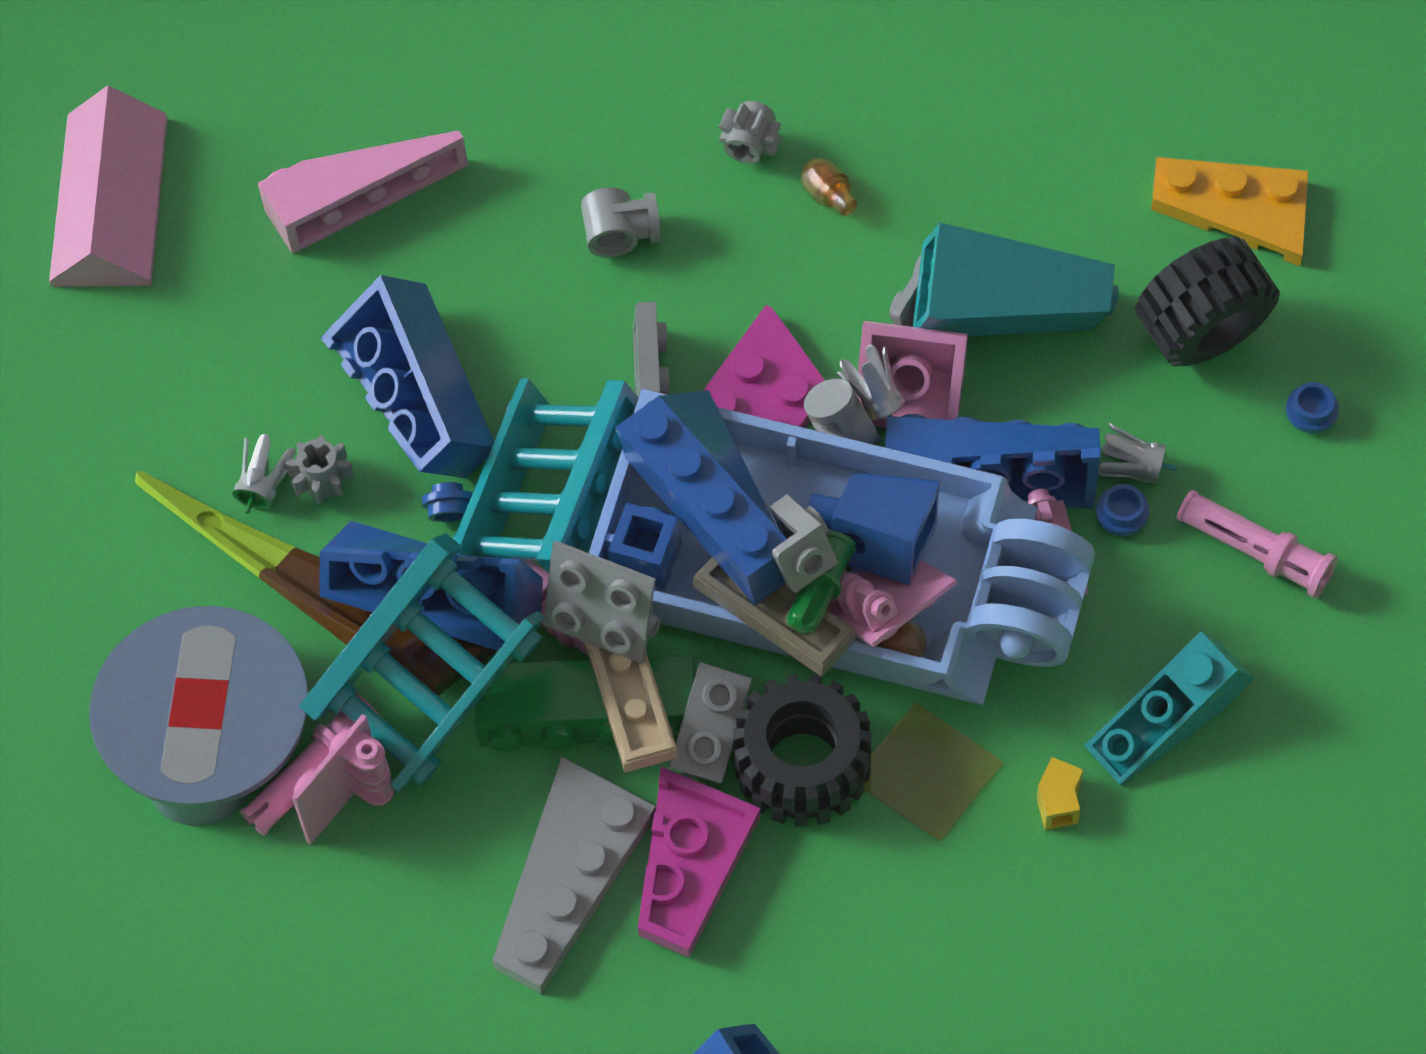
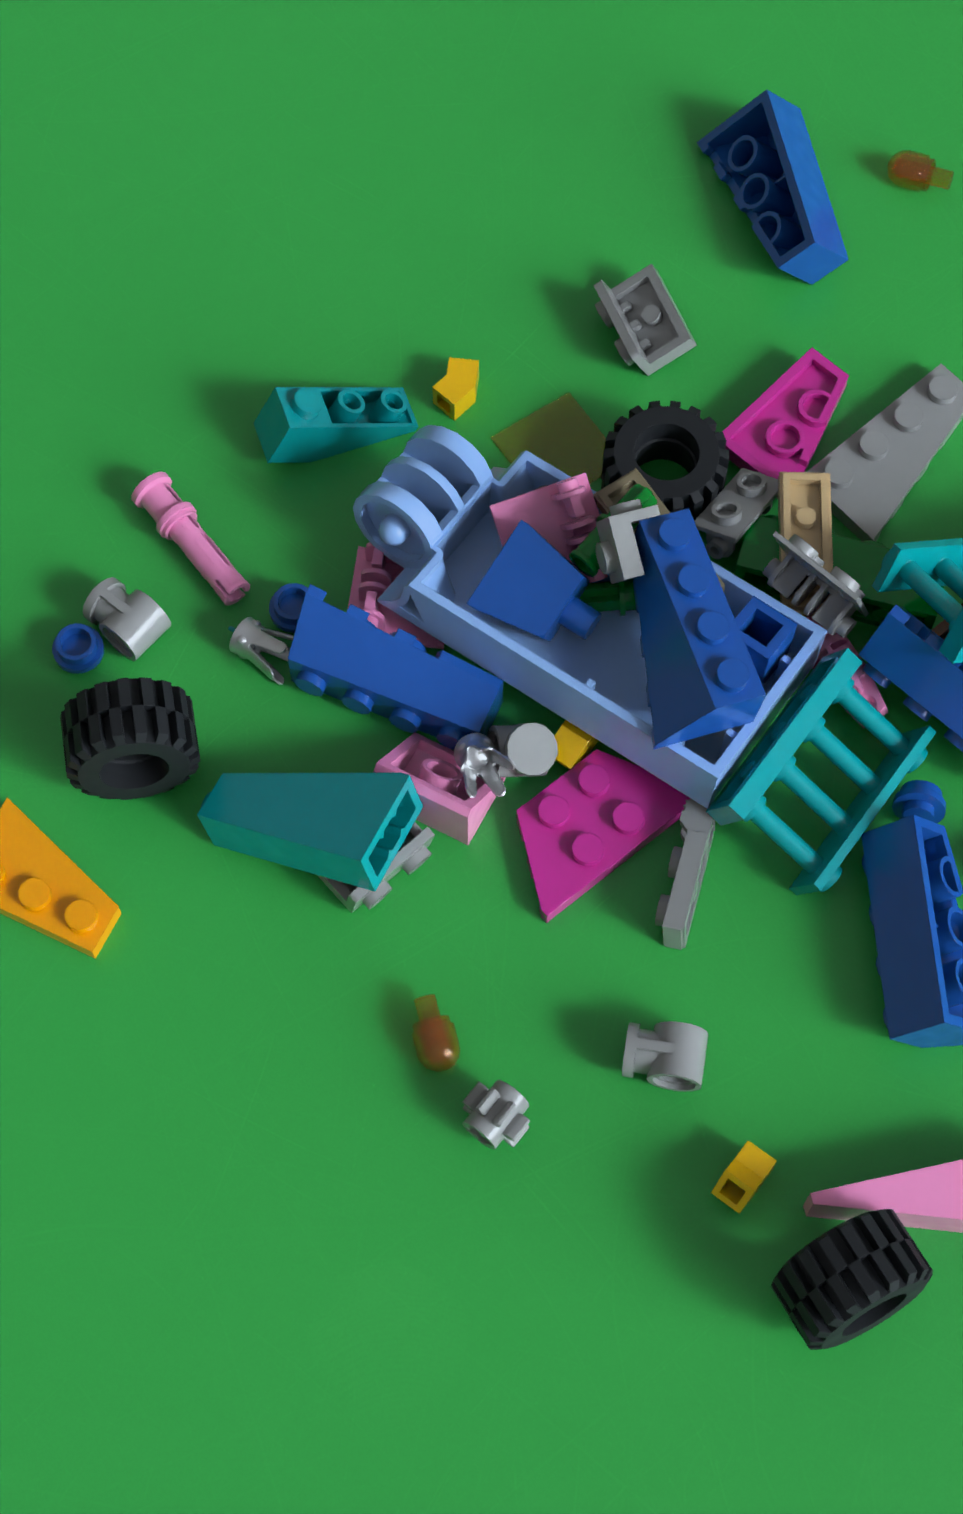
camera: 165 degrees left, 5 degrees up
(411, 77) = (851, 1279): none -> black tyre
(522, 159) = (744, 1177): none -> yellow piece
(887, 927) = (645, 319): none -> light grey bracket
(1275, 438) = (126, 620): none -> light grey piece

